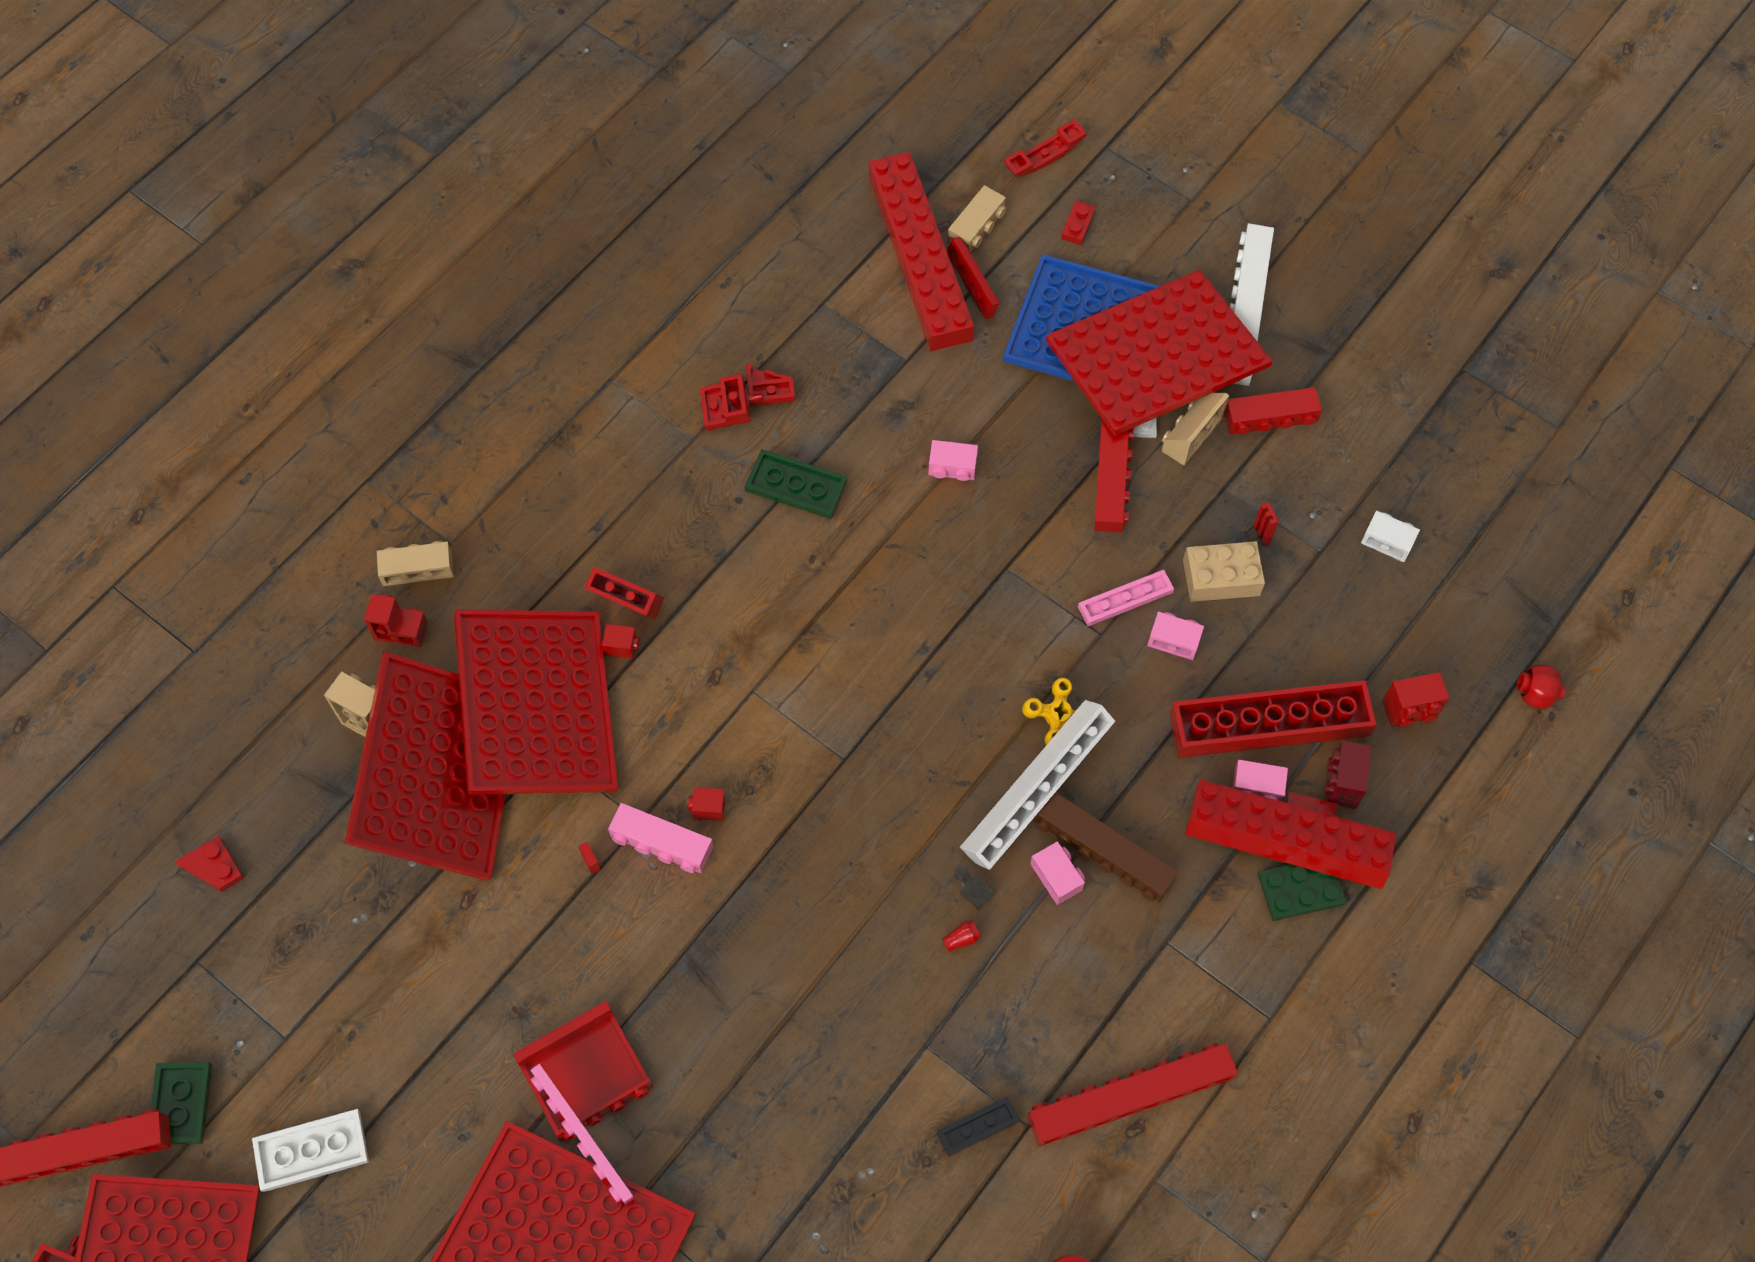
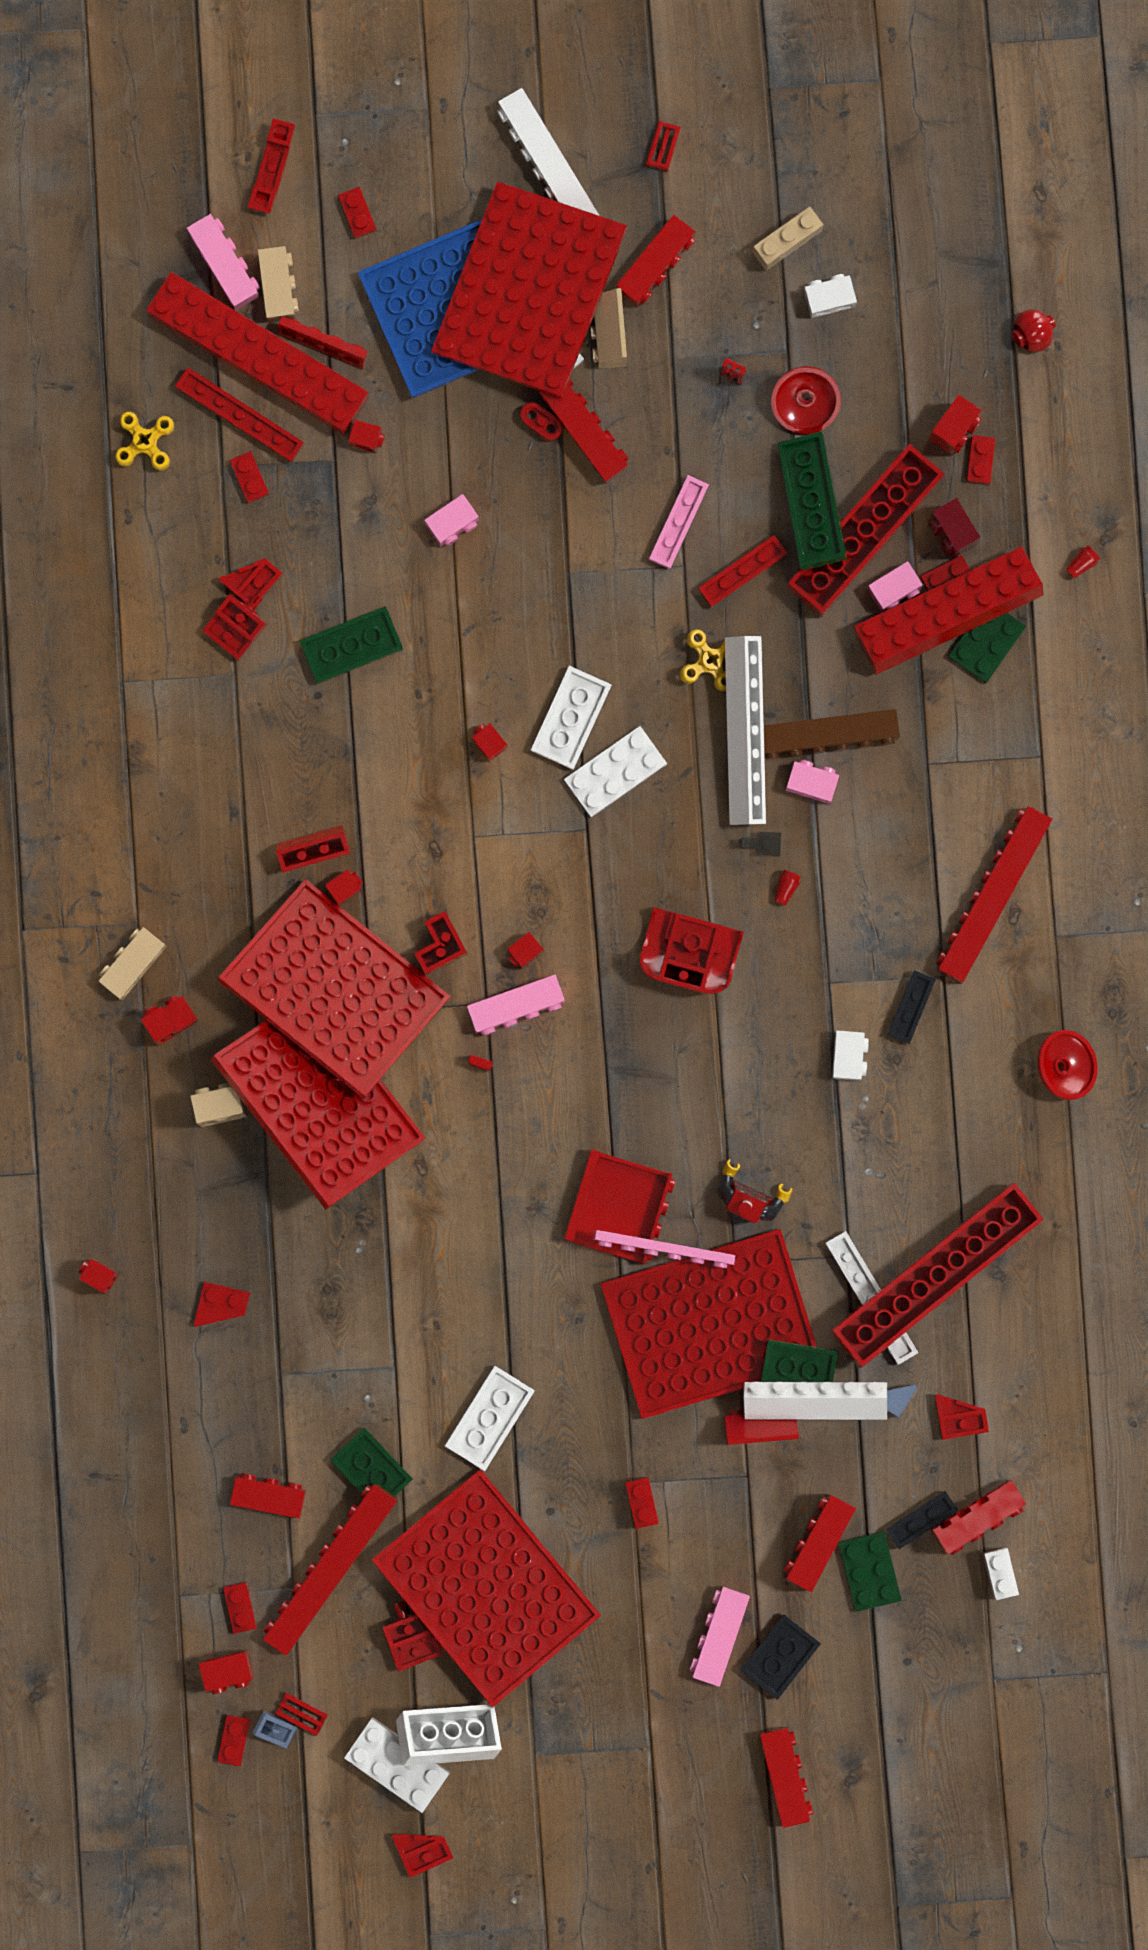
camera: 45 degrees left, 20 degrees up
(81, 1048) = (268, 1496): none -> red brick
(146, 757) = (98, 1275): none -> red brick
(646, 747) = (446, 946): none -> red brick
(690, 1165) = (747, 1201): none -> torso
(785, 242) = (151, 434): none -> yellow gear
(831, 631) = (489, 741): none -> red brick
(835, 322) = (249, 477): none -> red plate
(835, 917) = (690, 952): none -> red piece
(868, 279) = (239, 414): none -> red plate
(888, 1119) = (848, 1055): none -> white brick
(907, 735) = (615, 771): none -> white plate
(910, 666) = (571, 717): none -> white plate
(944, 358) = (366, 436): none -> red brick
(952, 179) = (223, 262): none -> bright pink brick
(1085, 450) = (541, 421): none -> red plate
(1144, 672) = (742, 571): none -> red plate
(1175, 635) = (740, 521): bright pink brick -> none
(1223, 571) = (732, 437): tan brick -> none
(1246, 661) = (812, 501): none -> dark green plate
(1290, 583) = (810, 413): none -> red dish
(1349, 354) = (658, 165): none -> red tile
(1391, 471) = (788, 238): none -> tan brick
(1414, 747) = (981, 459): none -> red plate
(1439, 892) = (1083, 561): none -> red cone

